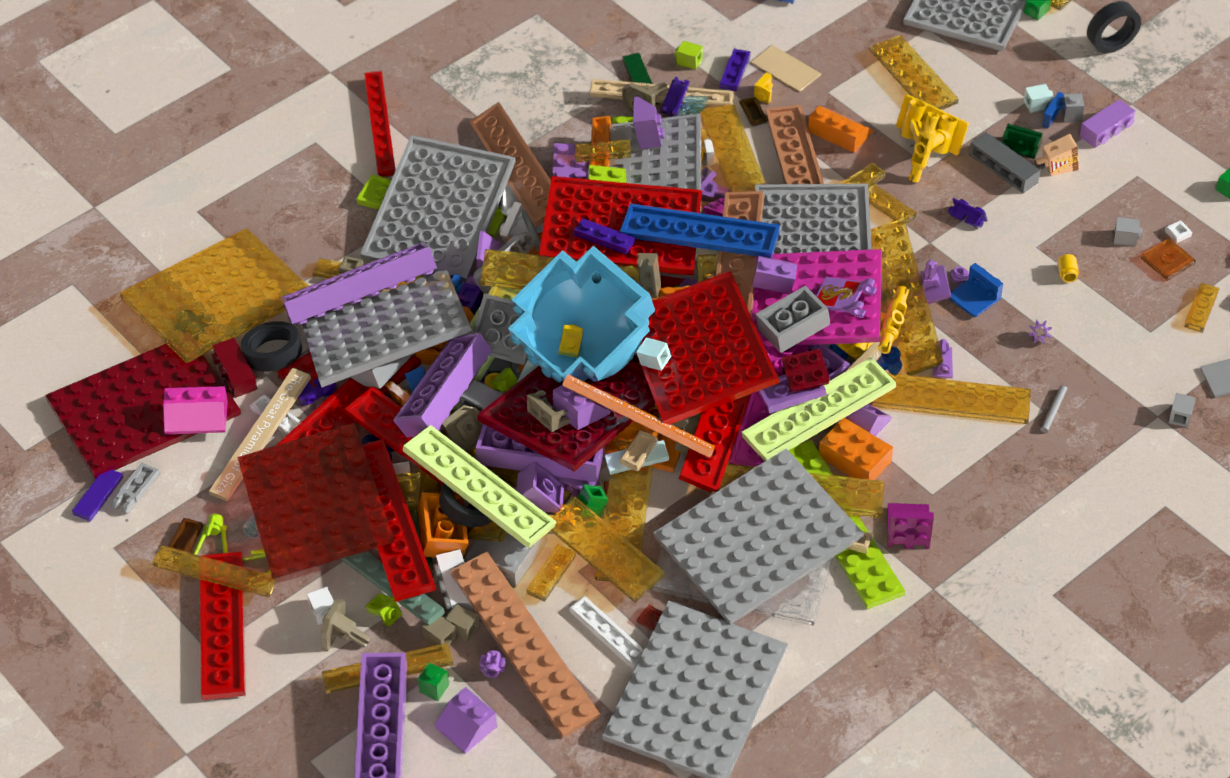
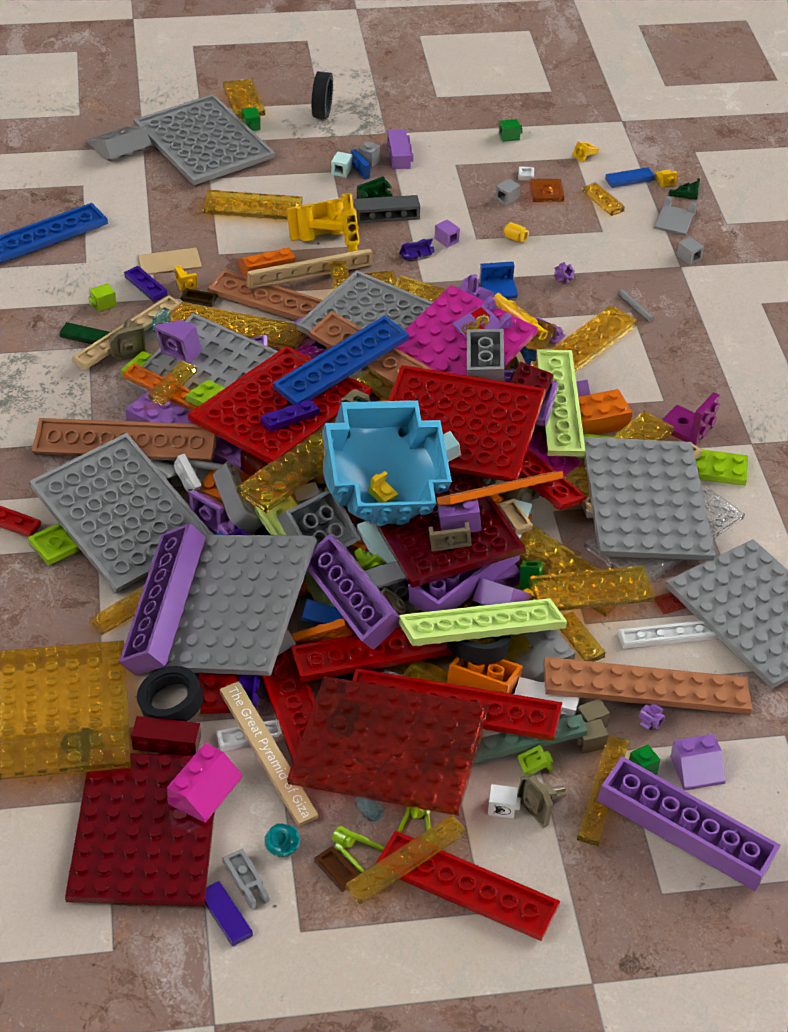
camera: 60 degrees left, 5 degrees down
(183, 488) = (282, 840): none -> teal hair
(349, 263) = (127, 599): dark tan tile -> none
(675, 97) = (147, 317): dark purple hinge -> none
(774, 275) = (427, 345): medium lavender slope -> none
(854, 155) = (306, 268): none -> tan tile
(1013, 221) = (447, 233): none -> medium lavender brick
(1059, 156) = (412, 186): light nougat torso -> none

